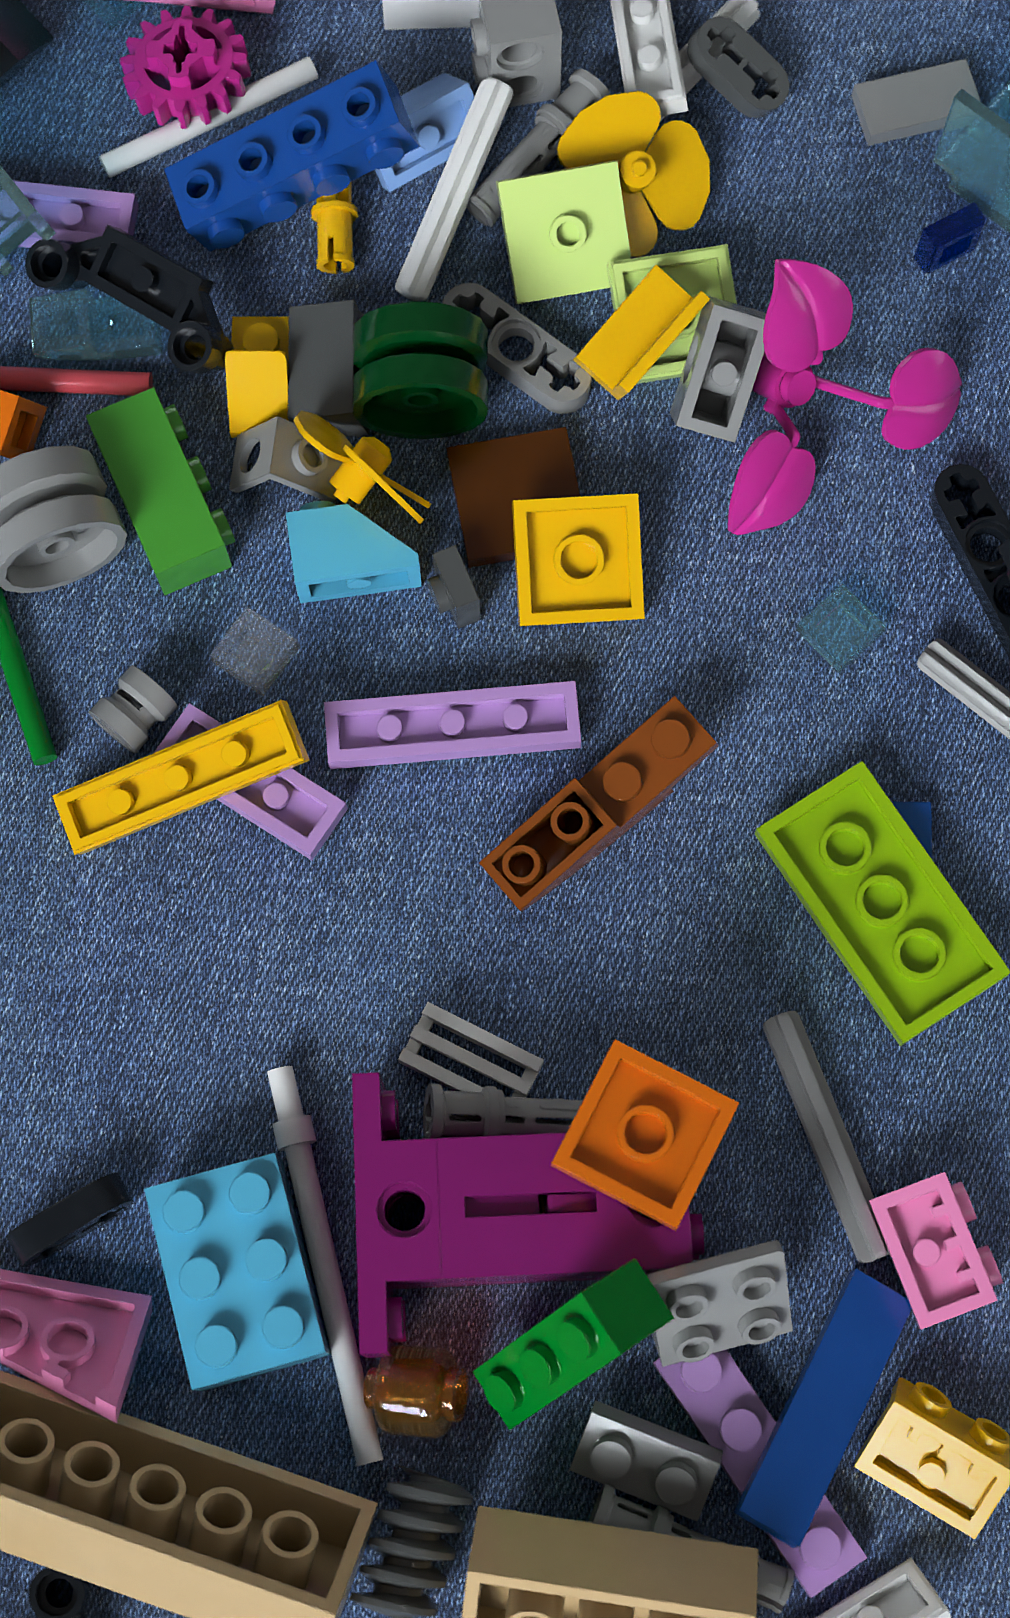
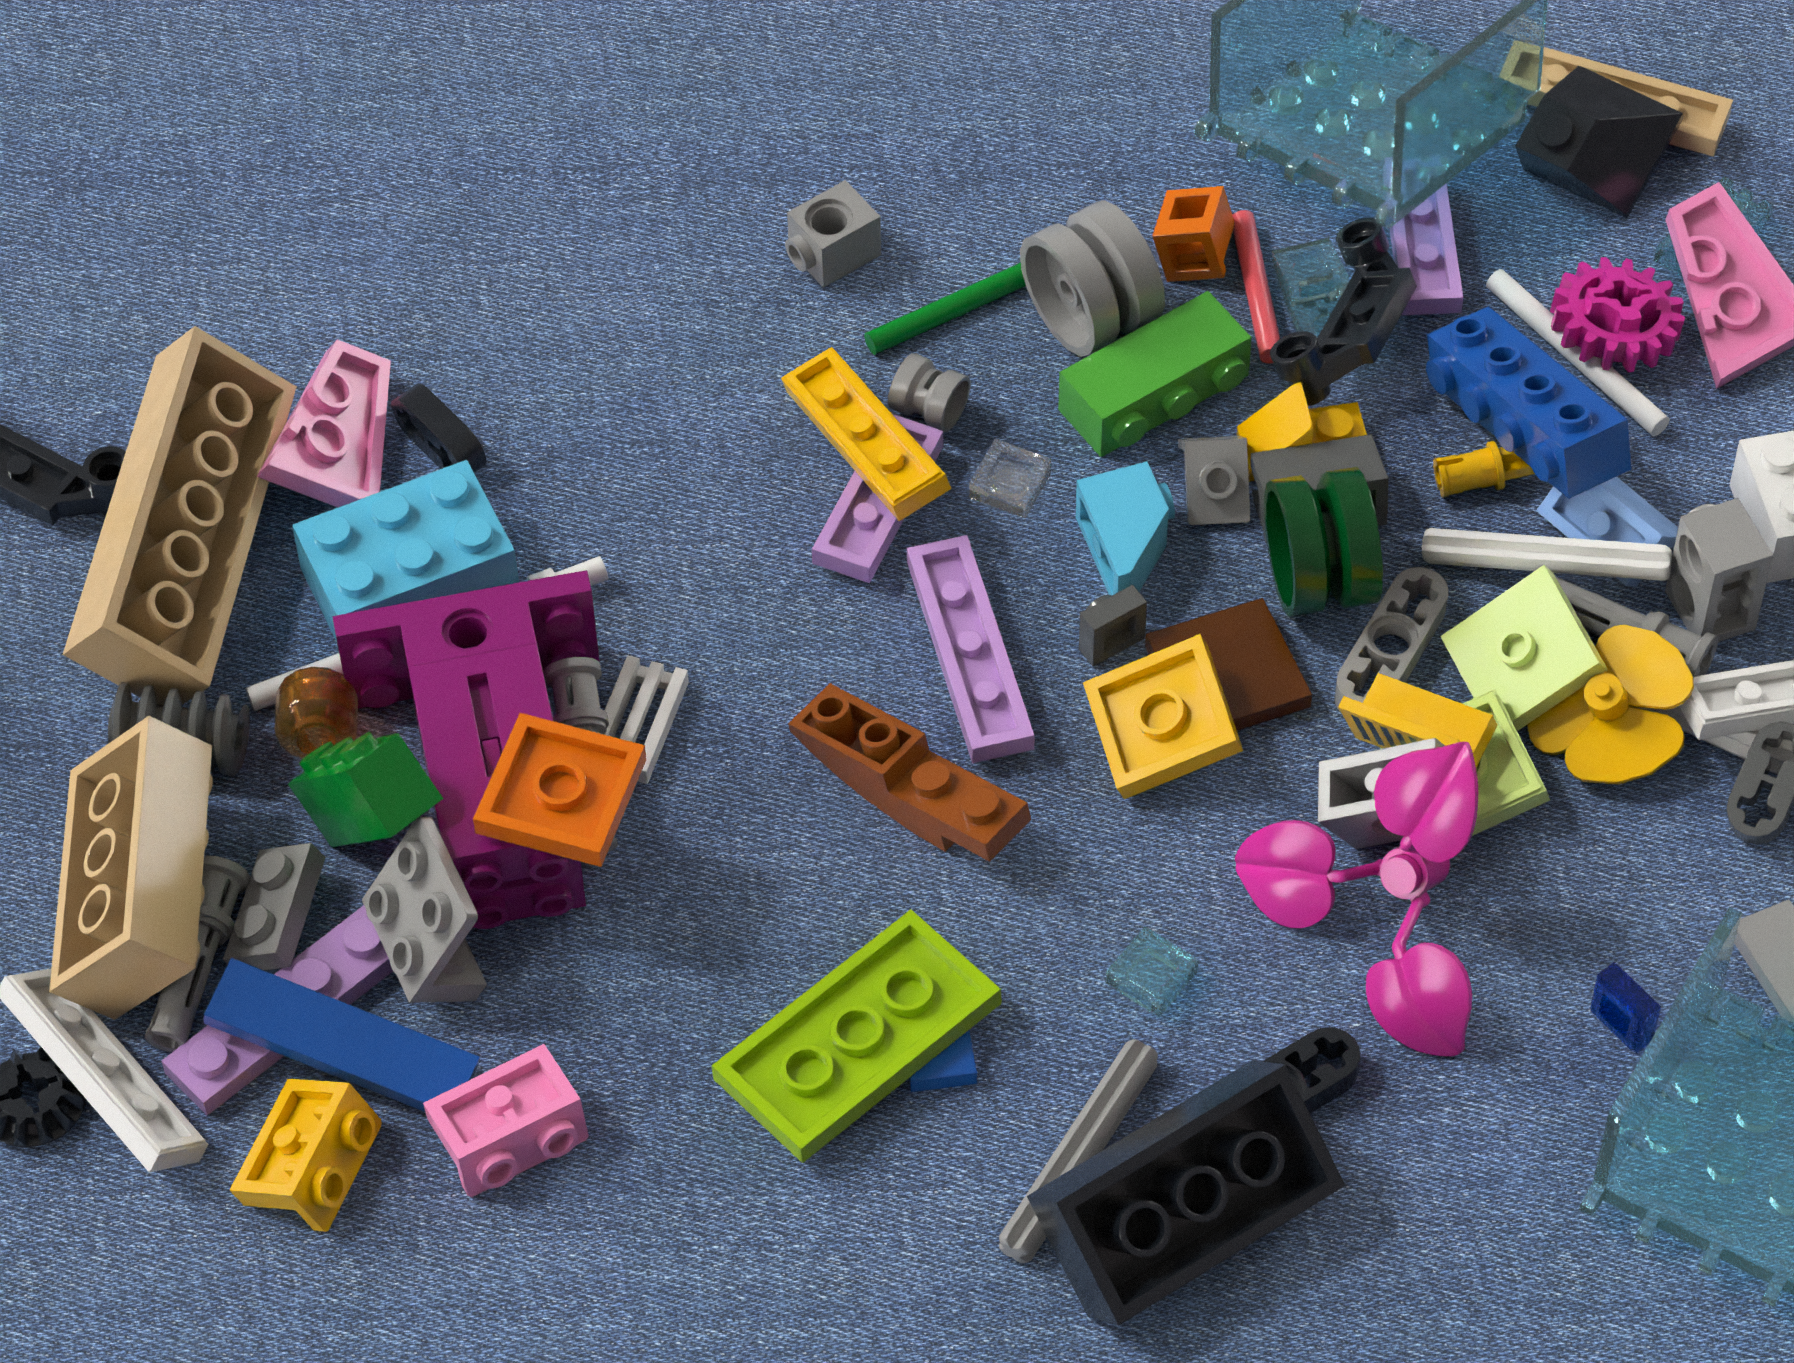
camera: 80 degrees right, 20 degrees down
(360, 466) = (1203, 499): yellow piece -> none
(826, 1134) = (630, 1011): light grey axle -> none

